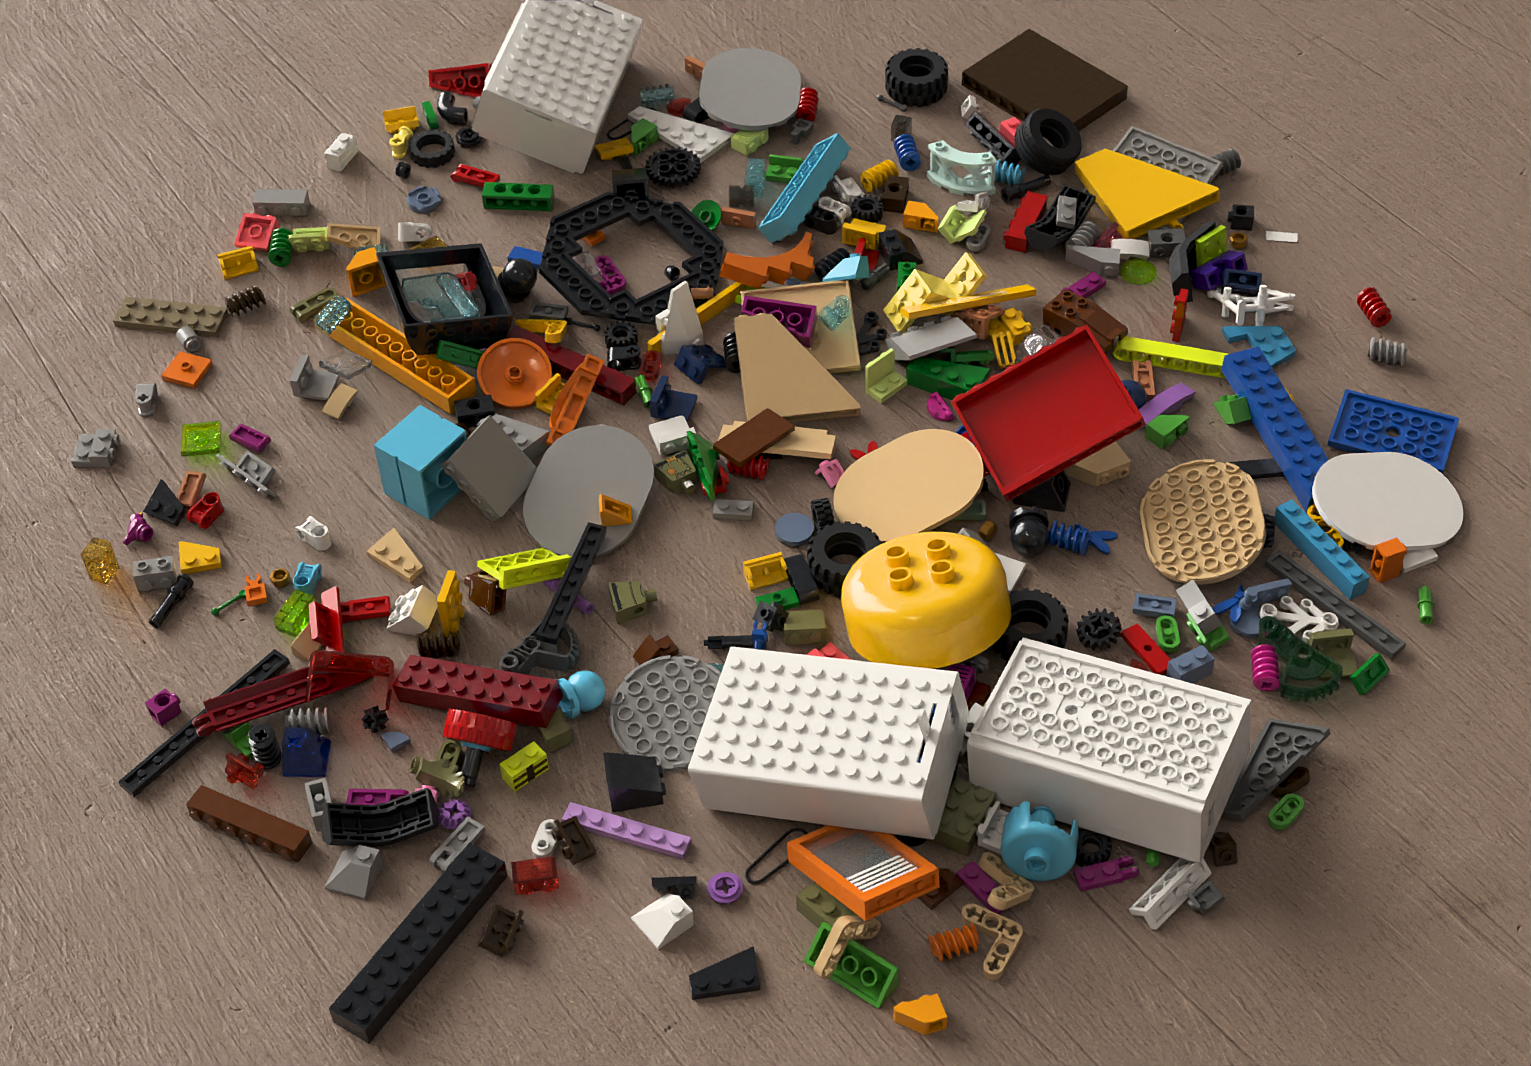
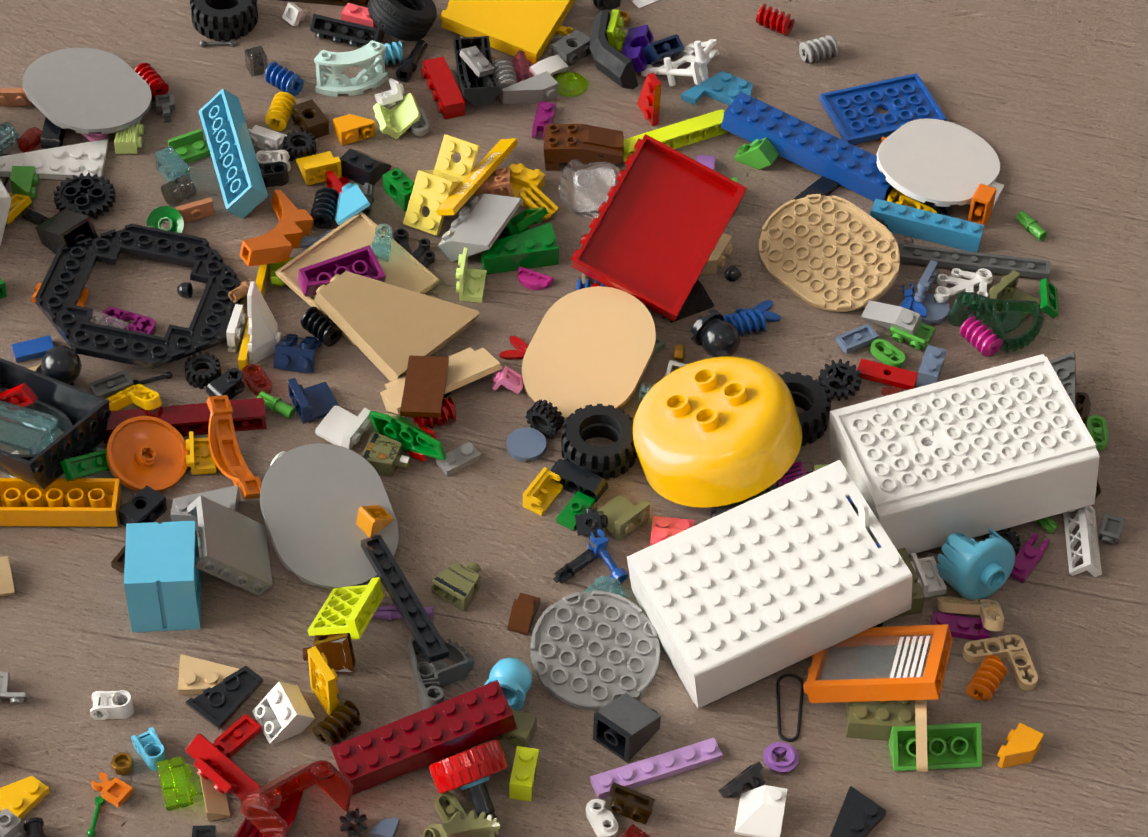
camera: 45 degrees left, 0 degrees up
(383, 577) = (224, 699): none -> black wing
(1104, 493) = (732, 273): none -> black hinge

